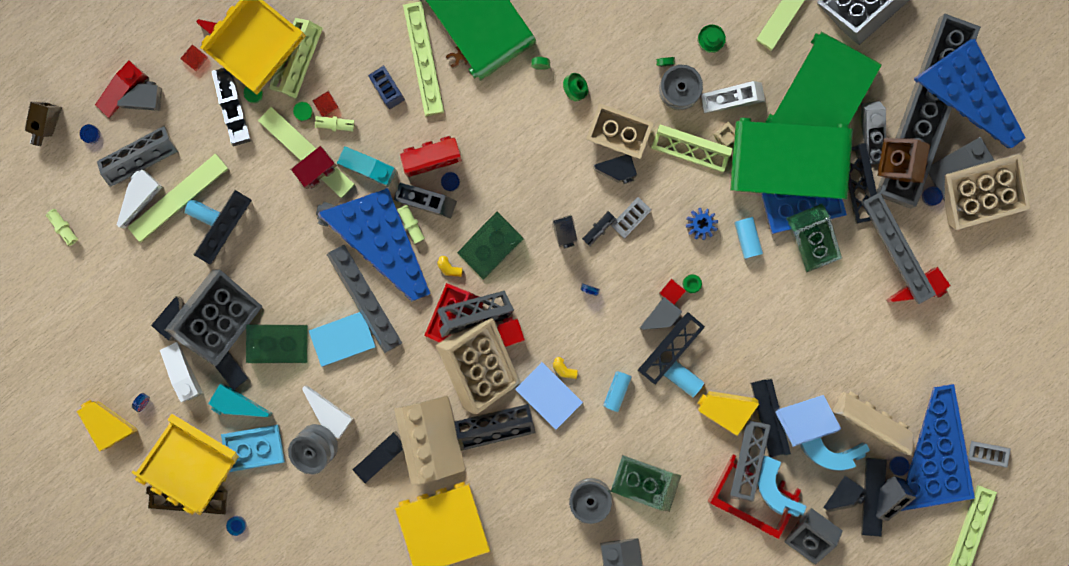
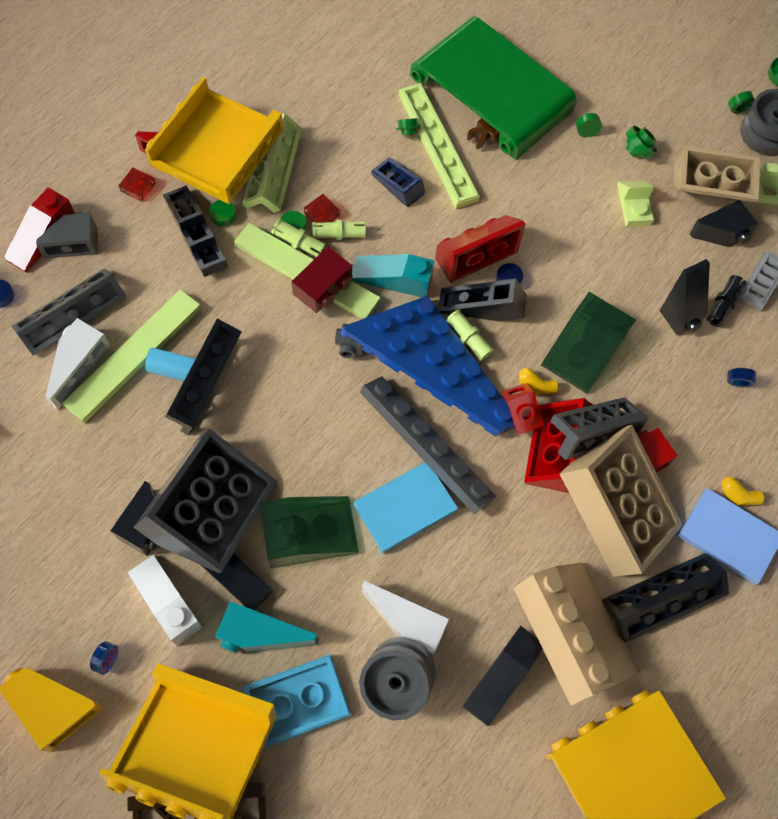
camera: 15 degrees left, 20 degrees down
(304, 127) = (298, 238): none -> yellowish green pin
(402, 40) = (408, 126): none -> green plate
(431, 286) = (523, 408): none -> red bracket
(558, 135) = (636, 203): none -> yellowish green slope

